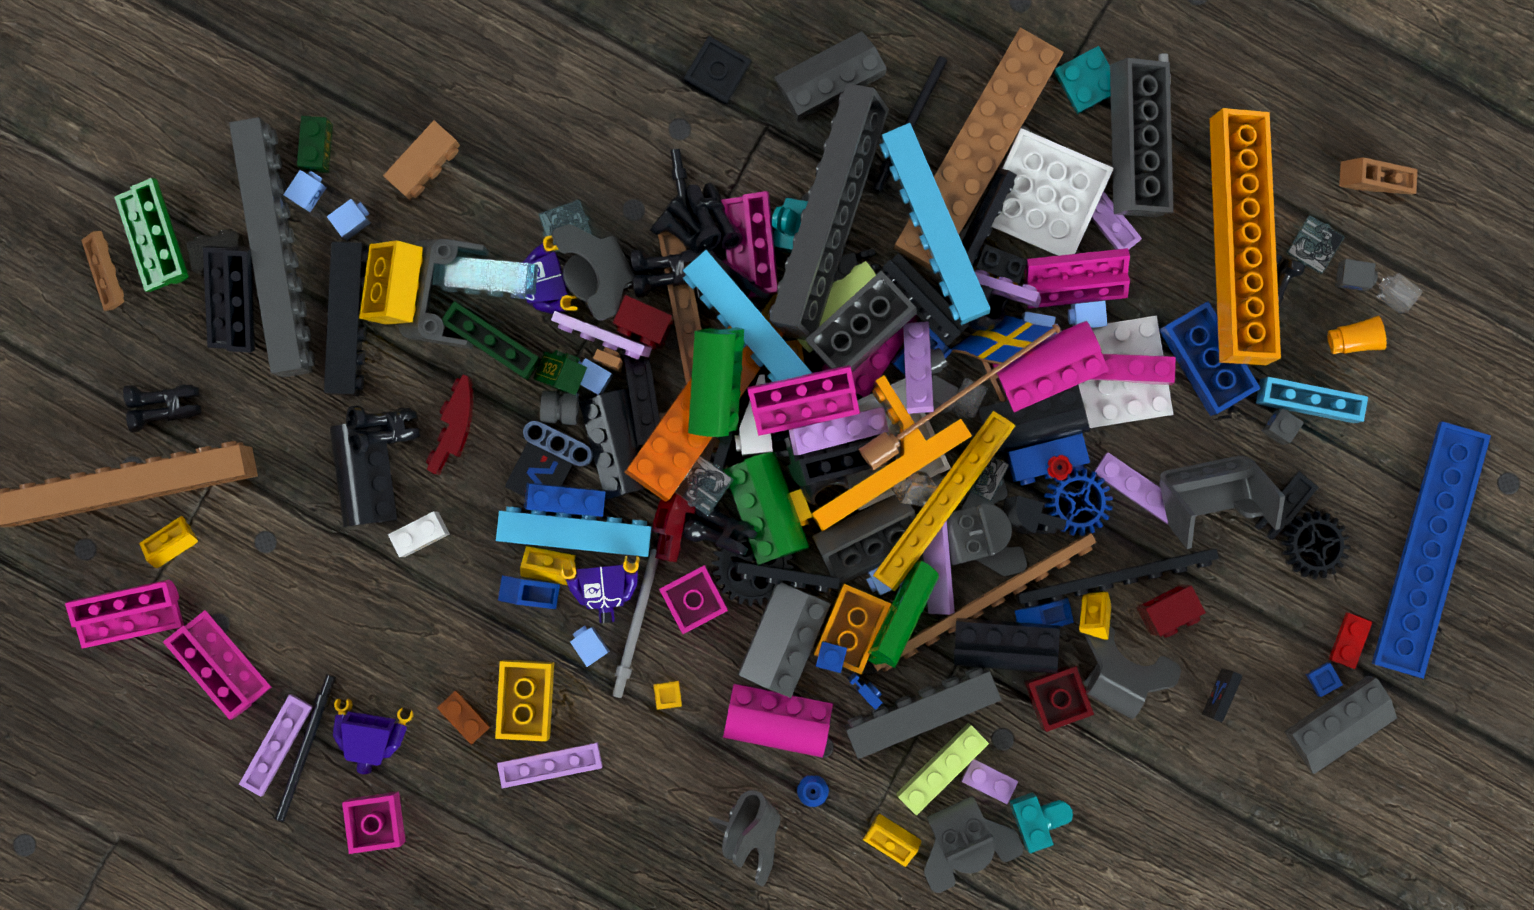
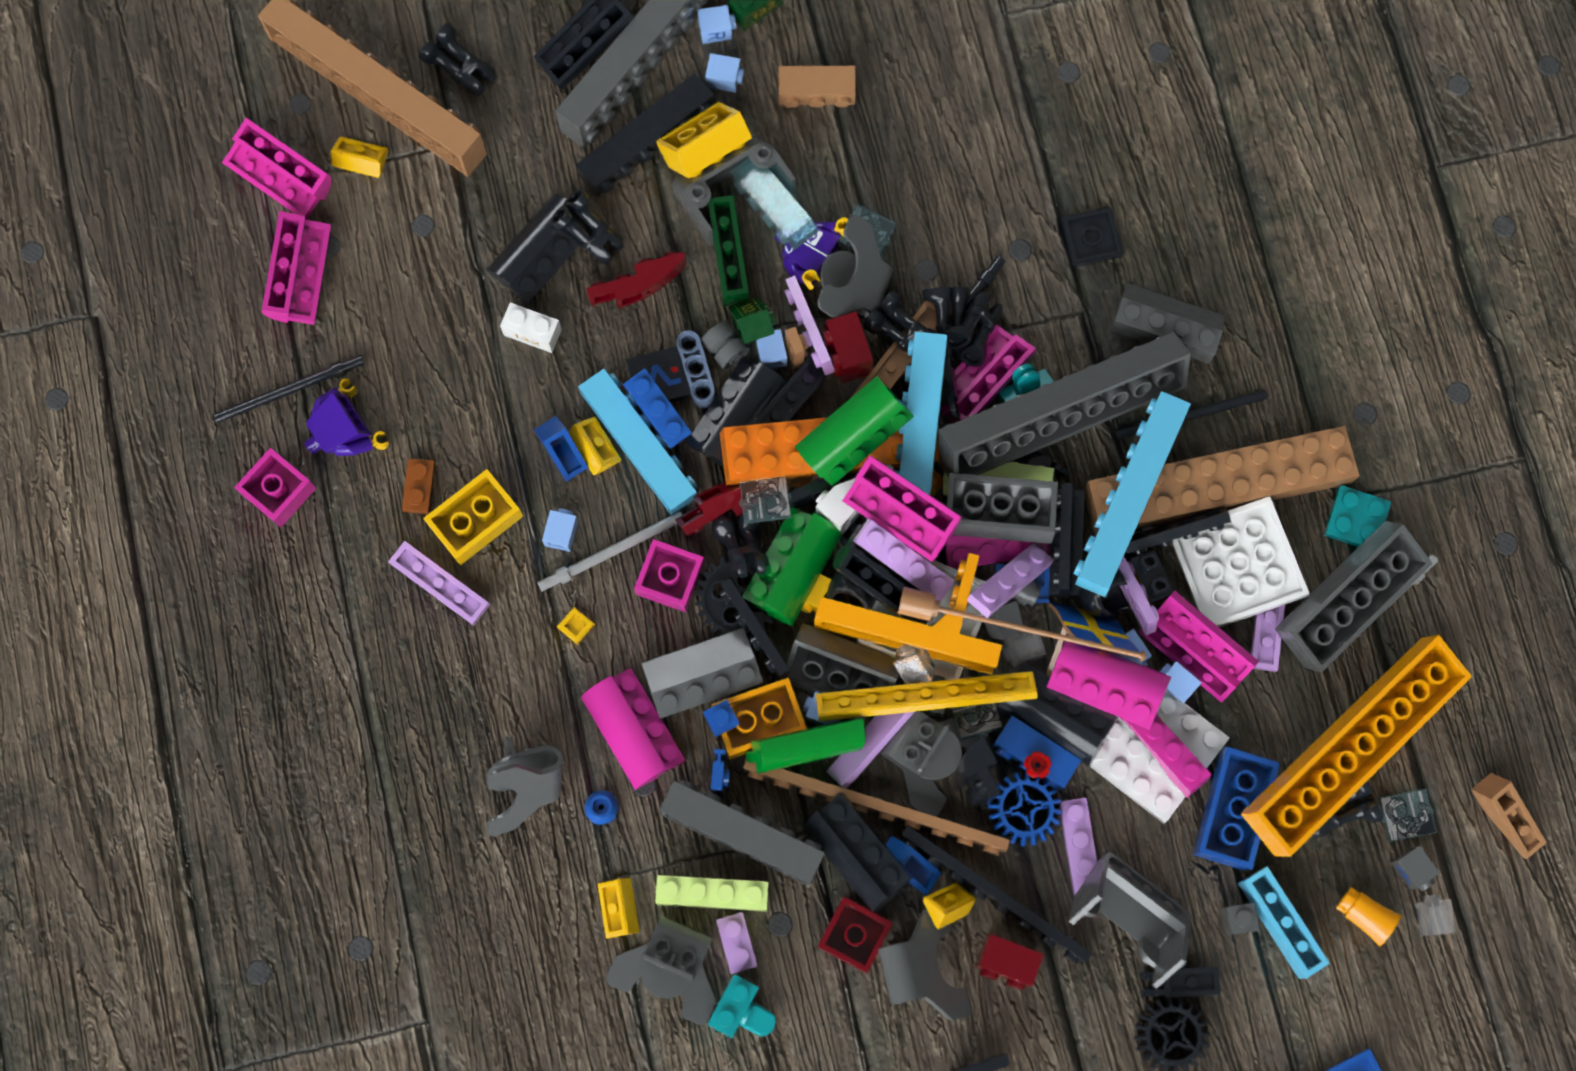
camera: 50 degrees right, 10 degrees down
(276, 745) = (272, 365): lavender plate -> none
(603, 586) = (616, 499): dark purple torso -> none

